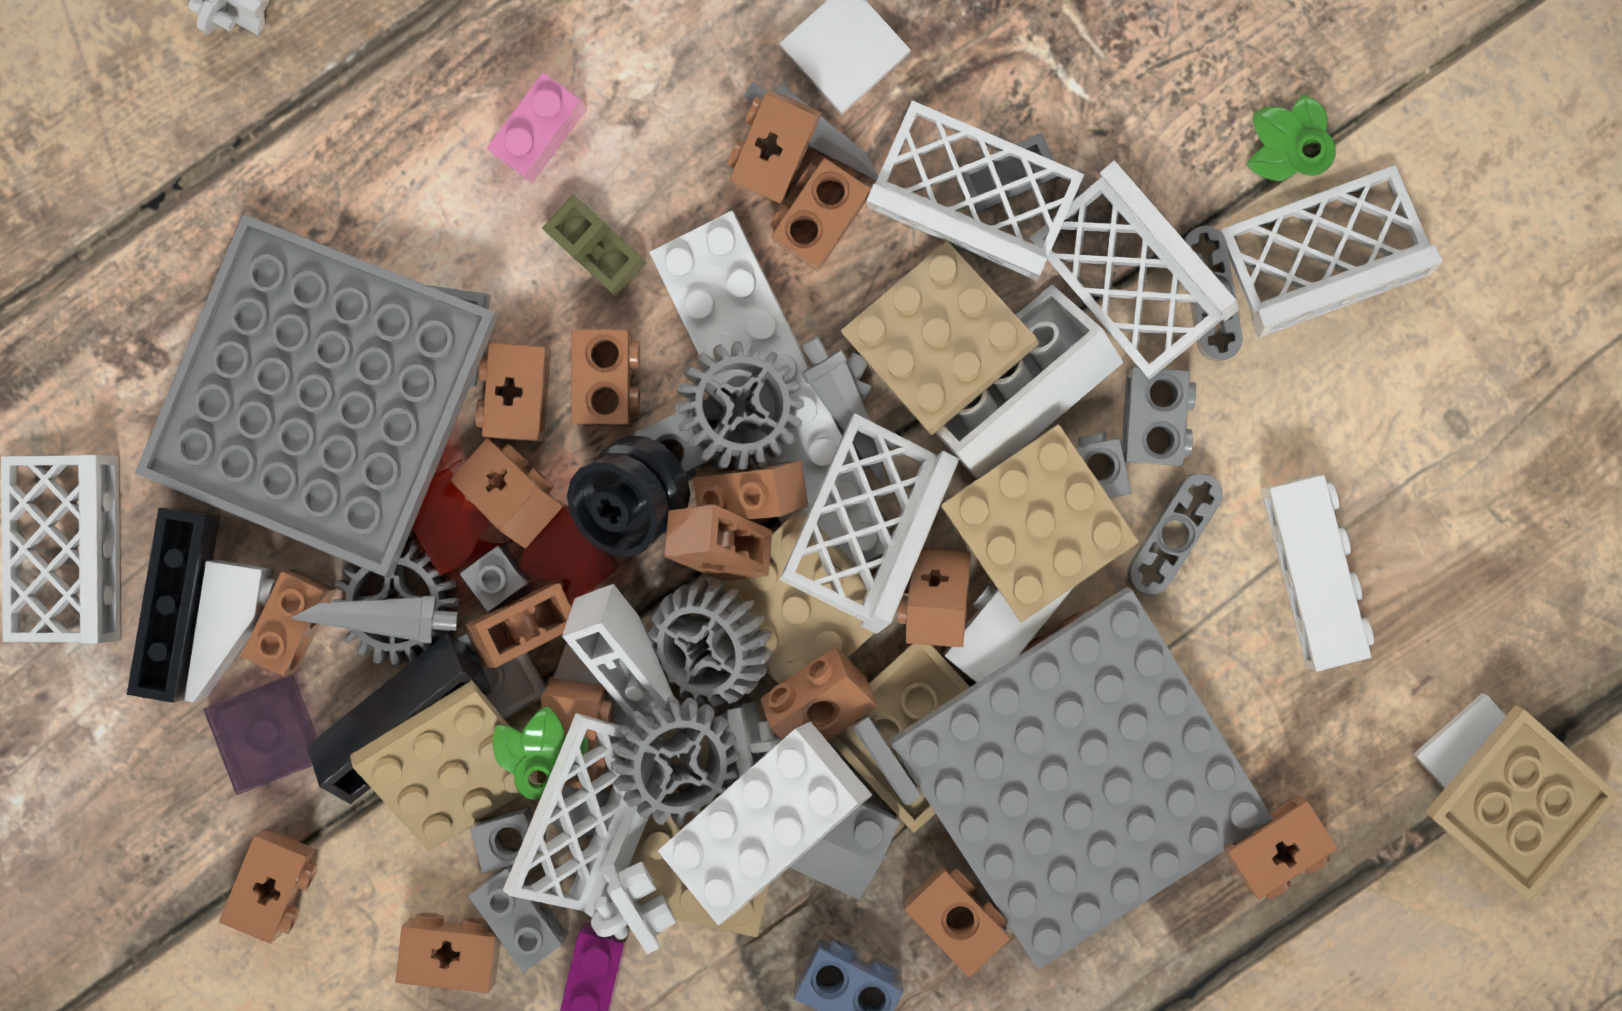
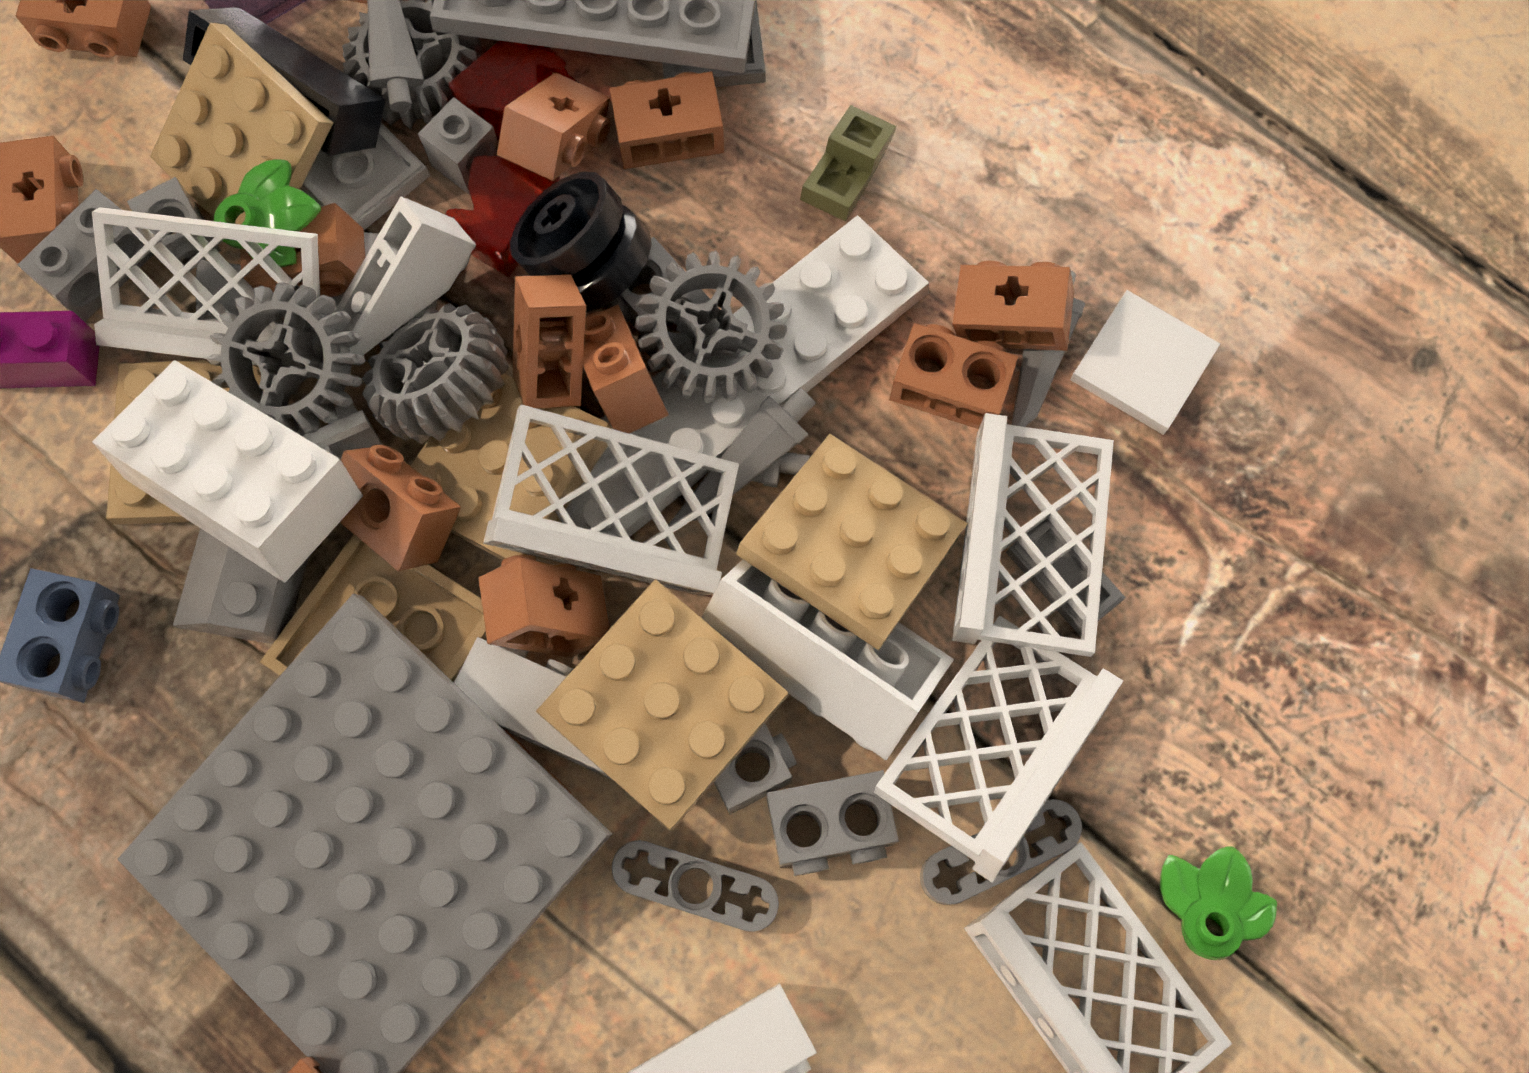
camera: 75 degrees right, 15 degrees down
(519, 625) = (408, 163): nougat brick -> none
(537, 128) = (953, 71): bright pink brick -> none
(590, 379) = (702, 186): nougat brick -> none
(625, 890) = (104, 358): white hips -> none
(886, 760) = (358, 576): light grey tile -> none
(966, 945) = (132, 755): nougat brick -> none

